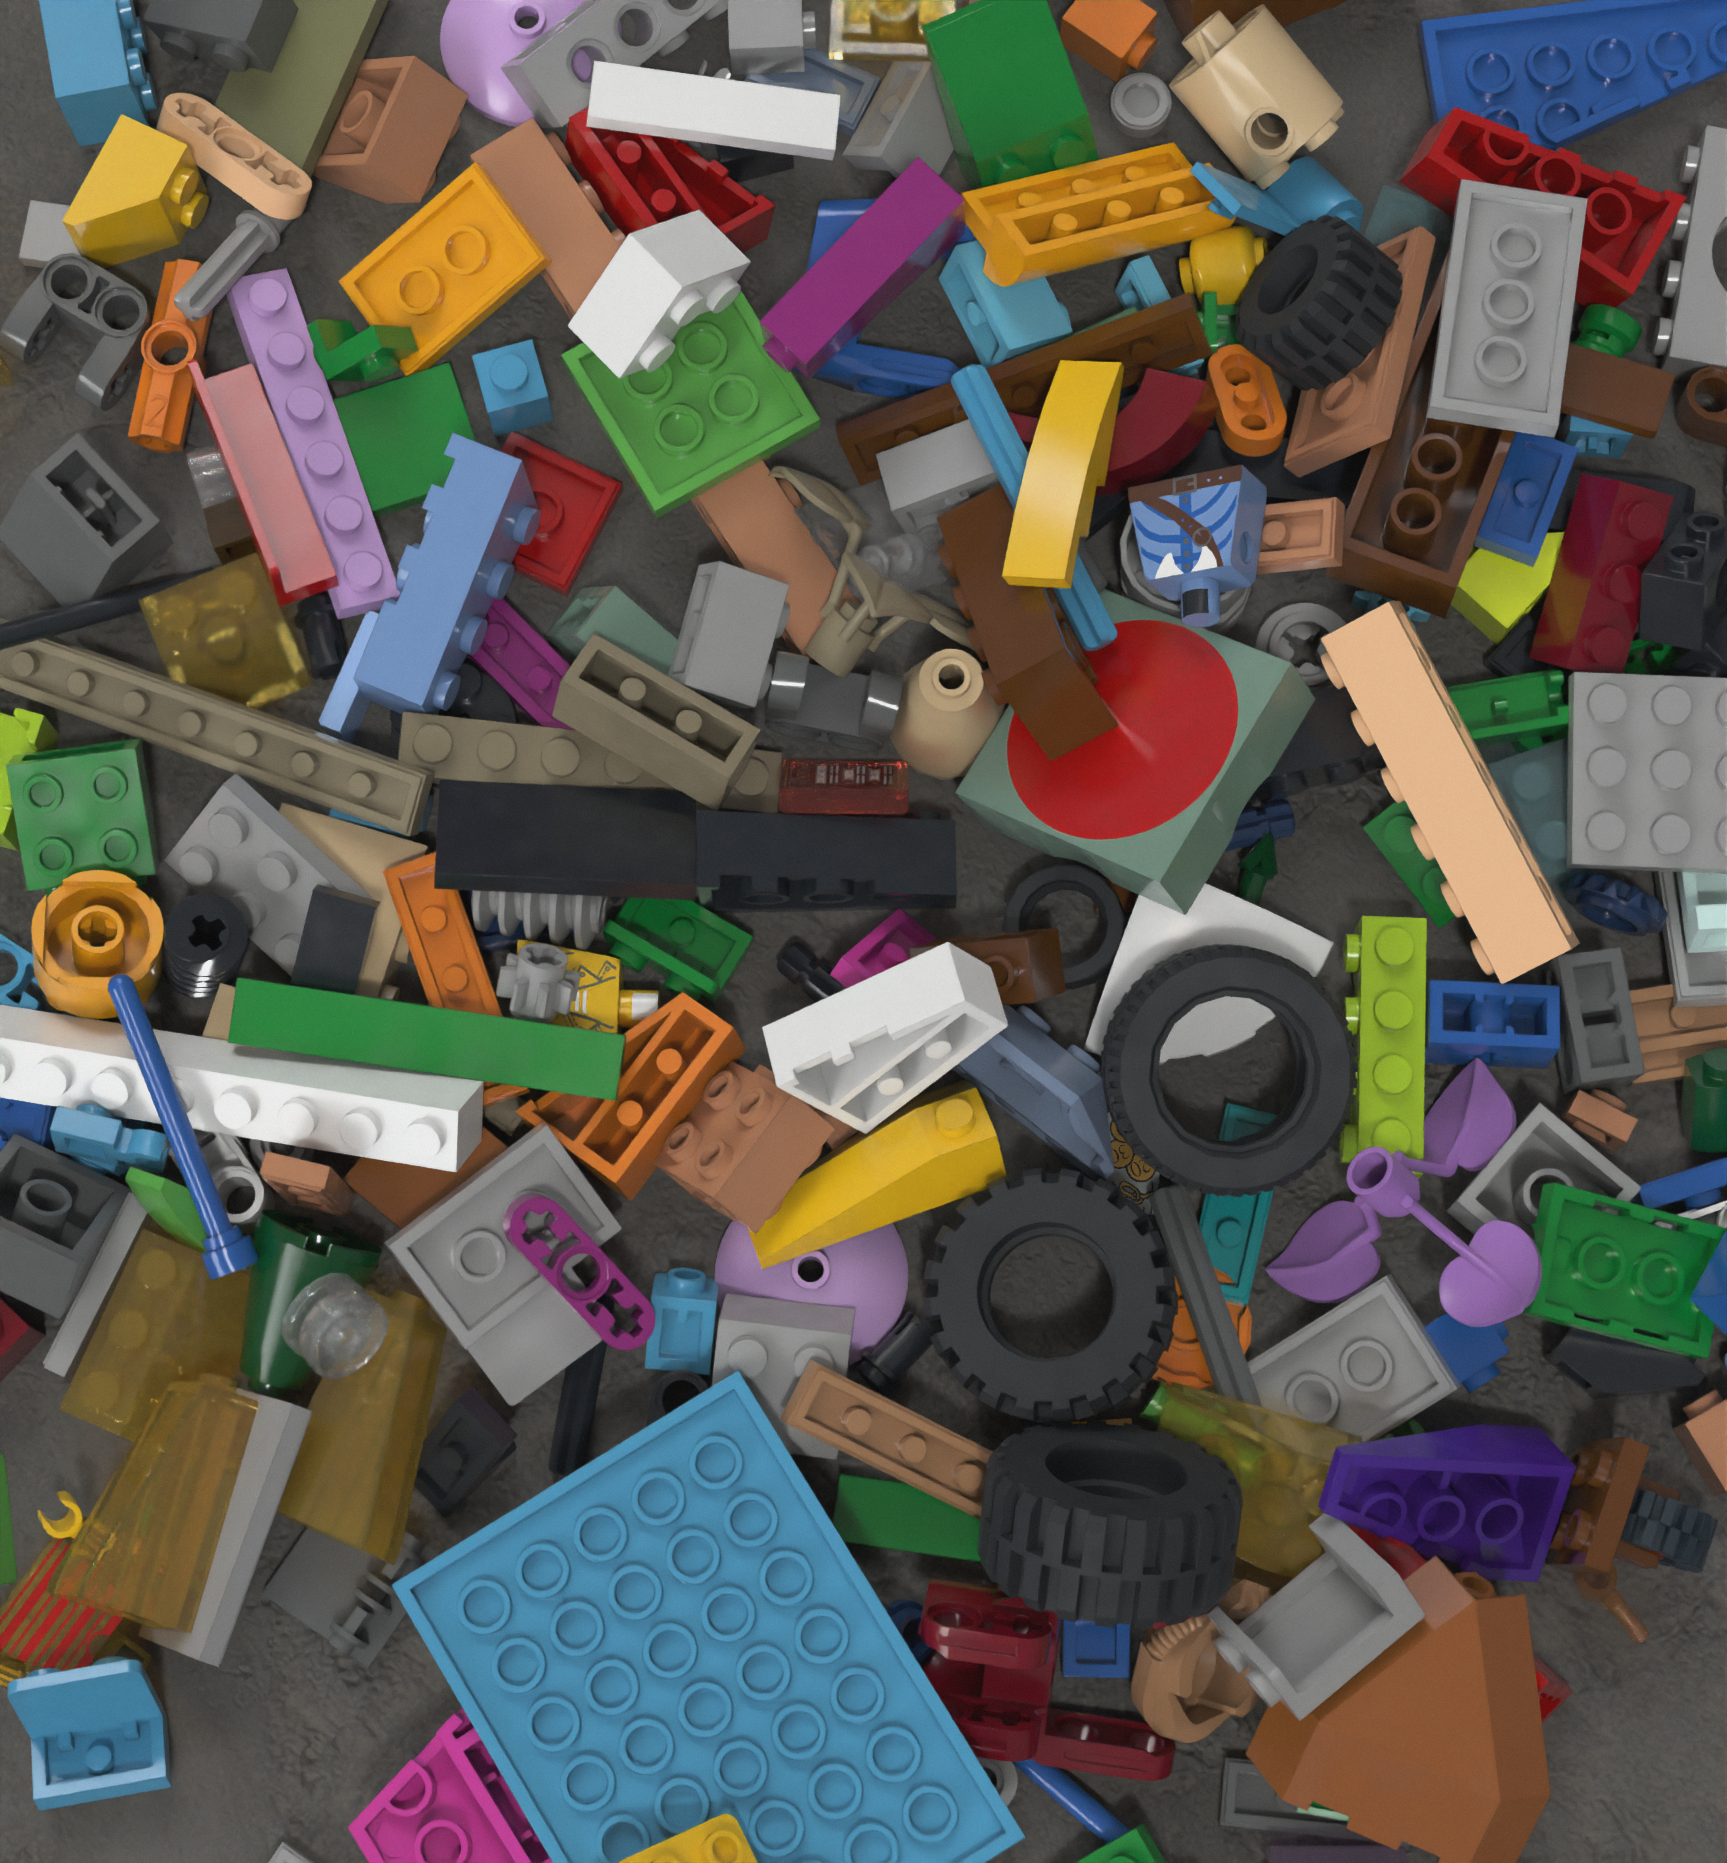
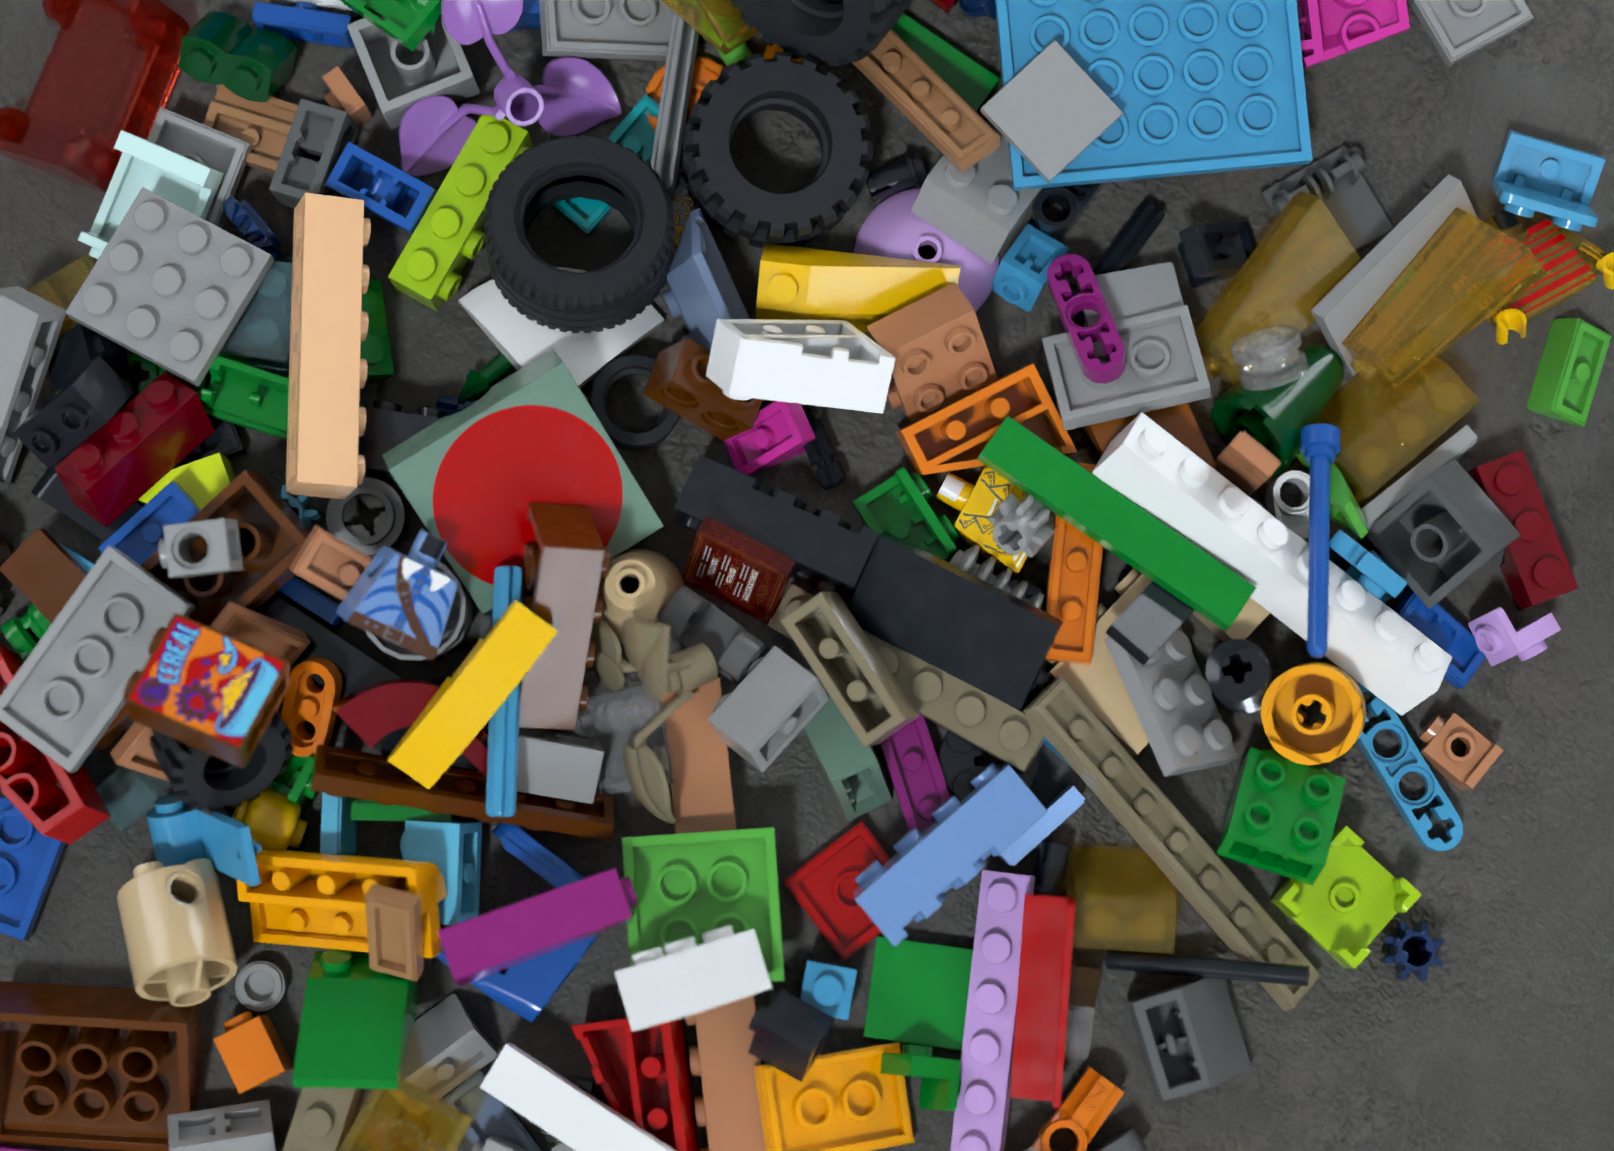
camera: 155 degrees left, 5 degrees up
(528, 305) = (789, 1034): none -> black brick
(735, 1478) = (1051, 112): none -> light grey tile
(1014, 190) = (394, 932): none -> medium nougat tile
(1355, 315) = (207, 689): none -> brick
(1442, 497) = (223, 548): none -> light grey brick

